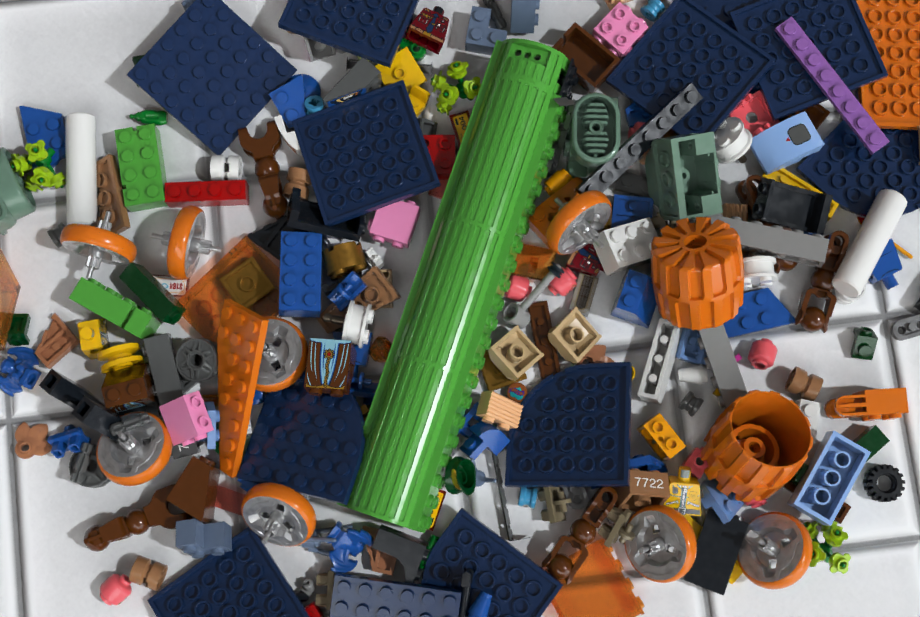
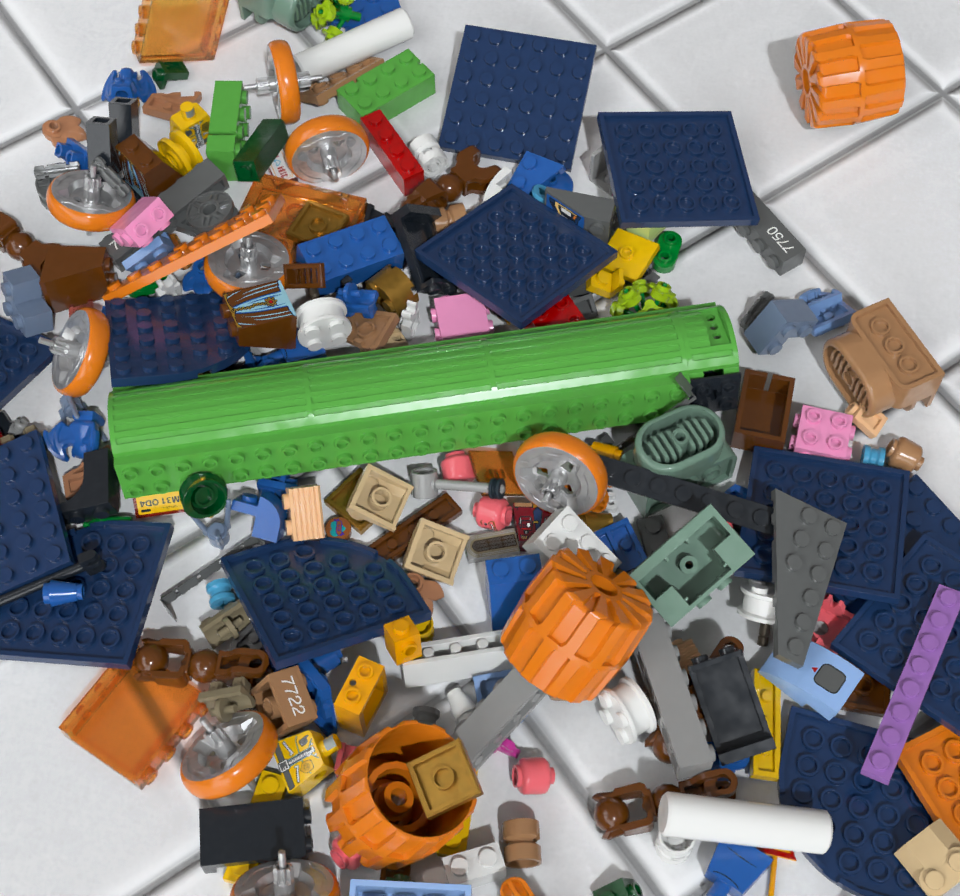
camera: 65 degrees right, 20 degrees down
(150, 117) = (442, 78): green piece -> none
(306, 327) = (293, 277): none -> reddish brown slope
(429, 29) = (692, 255): dark red torso -> none
(479, 36) = (732, 295): sand blue brick -> none
(642, 390) = (402, 640): none -> light orange brick
(723, 505) = (310, 806): medium blue slope -> none
(726, 106) = (802, 565): none -> dark grey wing
(759, 312) = (578, 744): blue wing -> none
(771, 413) = (444, 779): none -> pearl gold tile

